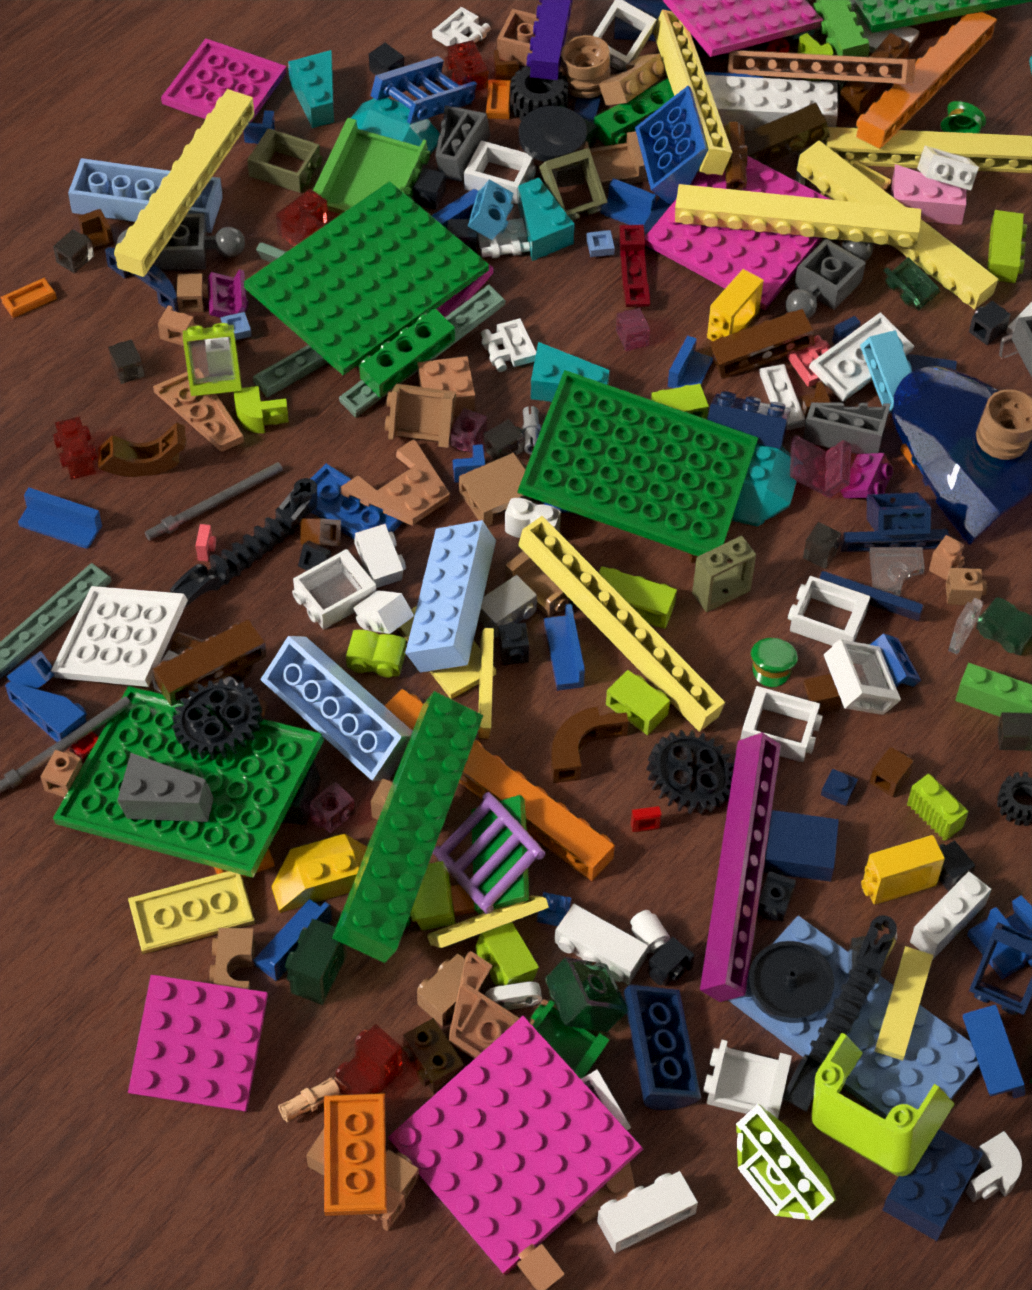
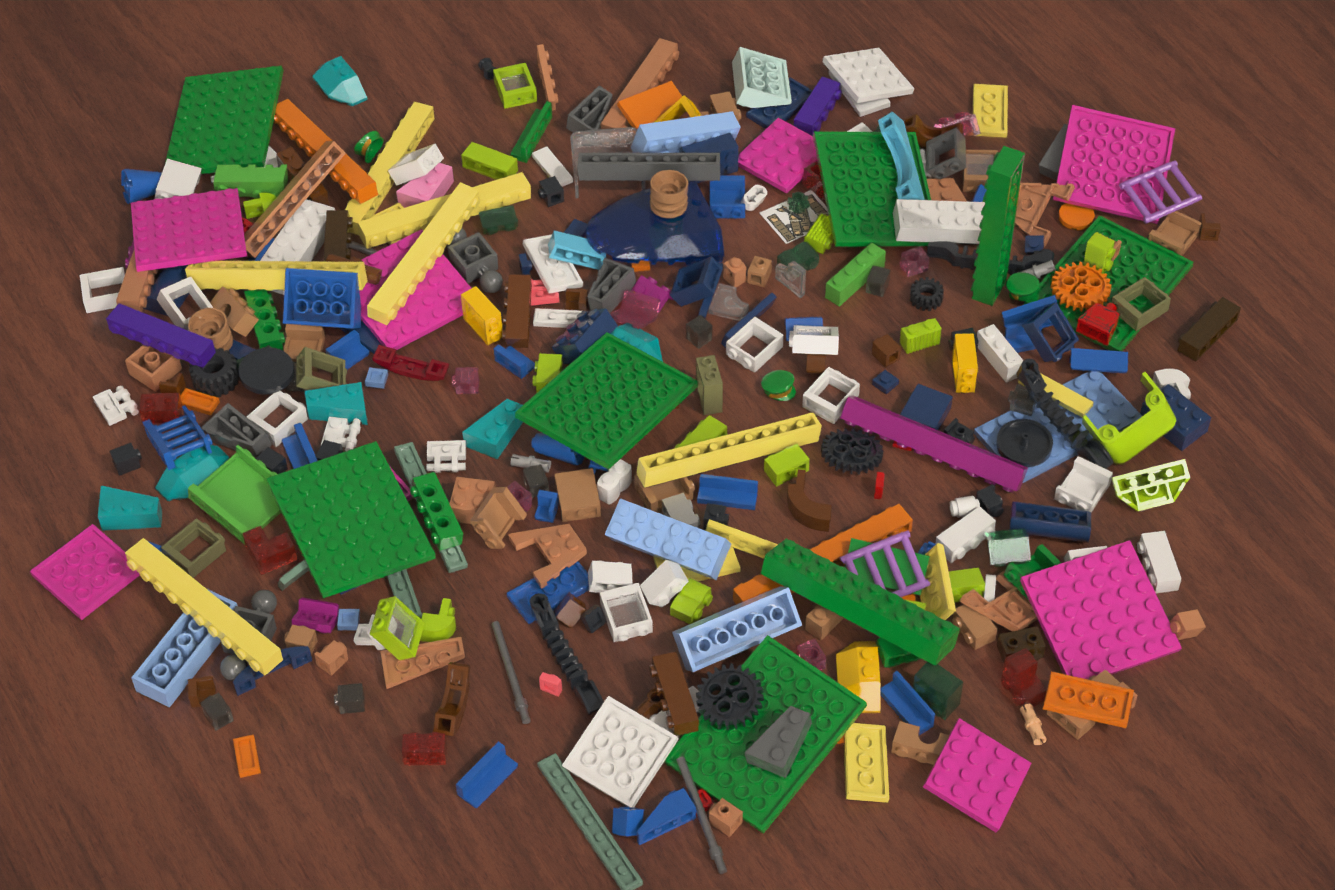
camera: 70 degrees left, 5 degrees down
(491, 210) = (323, 426): dark azure brick -> none

